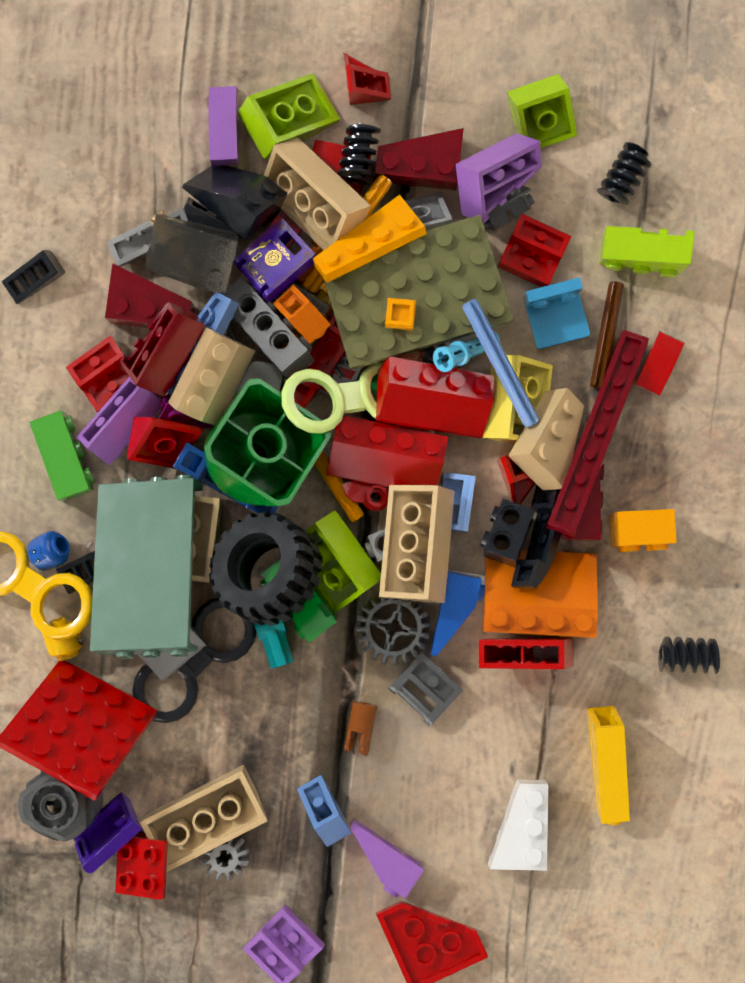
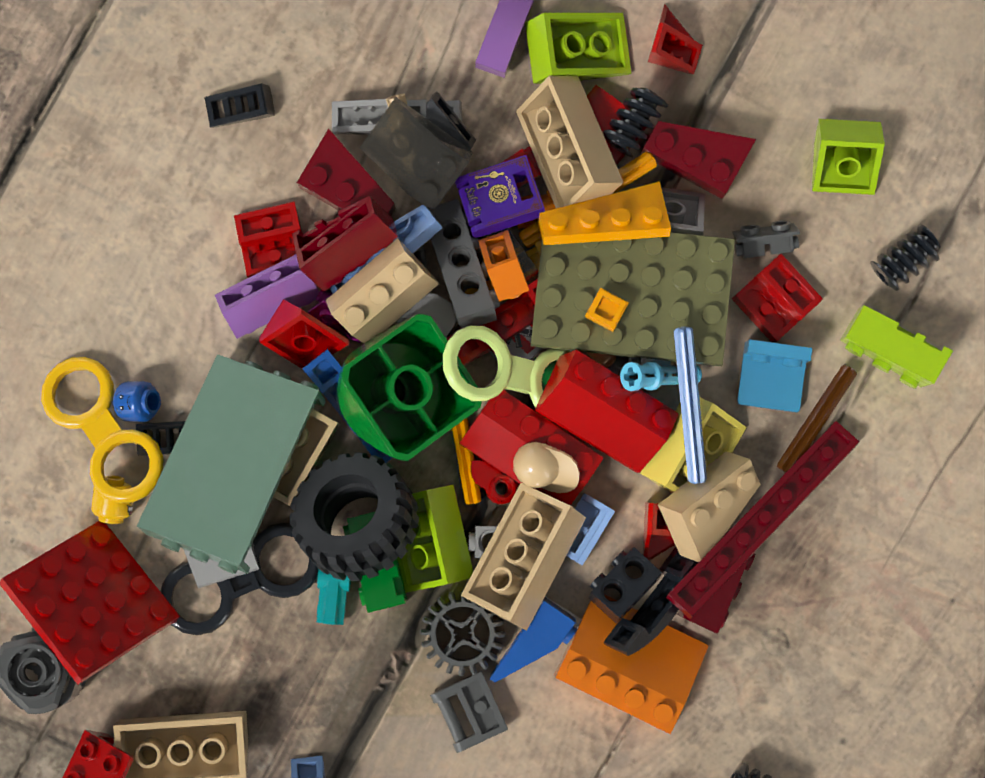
camera: 20 degrees right, 0 degrees up
(62, 455) = (192, 307): bright green brick -> none
(107, 833) = (75, 722): dark purple container -> none
(237, 197) = (488, 112): black slope -> none
(360, 721) = (386, 717): dark orange hinge -> none
(405, 464) = (546, 468): none -> tan cap
(495, 172) = (769, 200): medium lavender wedge -> none
(526, 653) = (590, 719): red brick -> none
(642, 528) = (768, 640): light orange brick -> none
(659, 363) = (860, 472): red slope -> none

